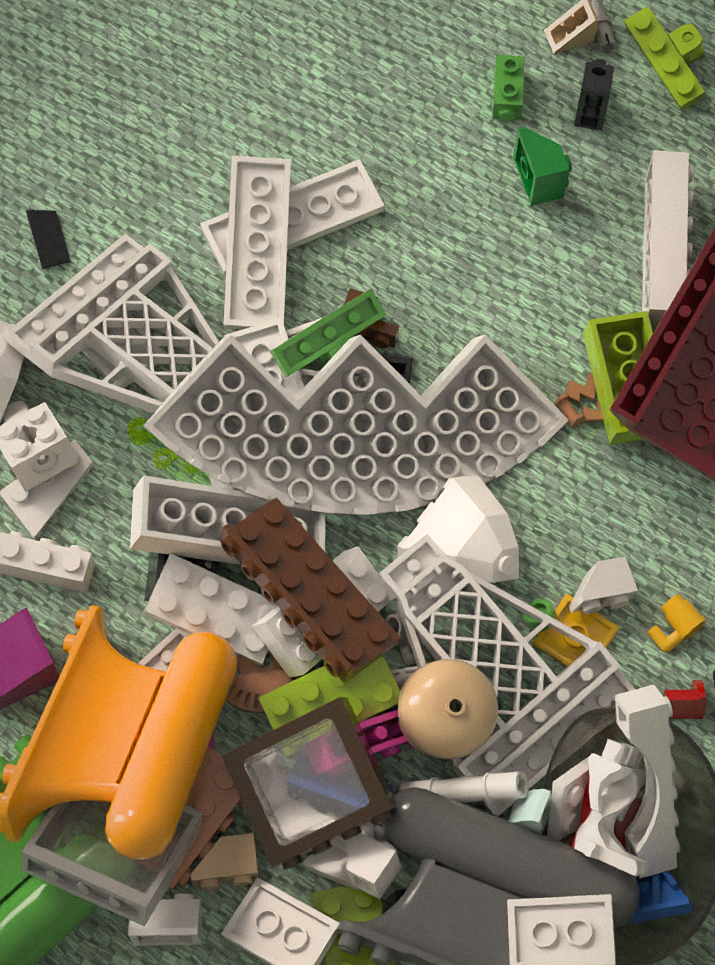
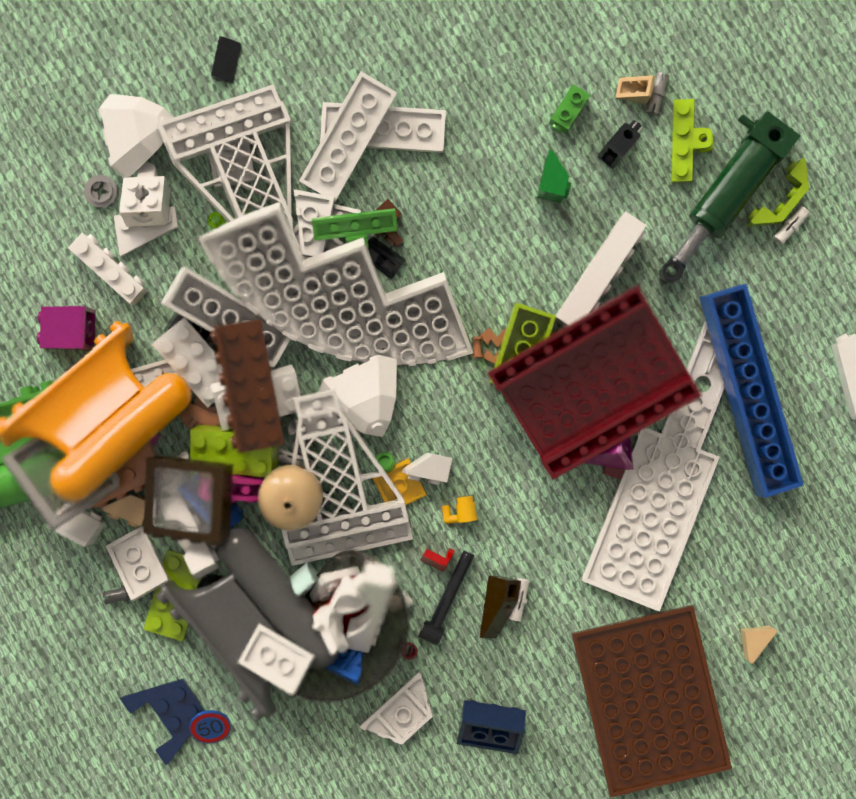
camera: 35 degrees right, 20 degrees up
(476, 788) = (277, 545): white piece -> none

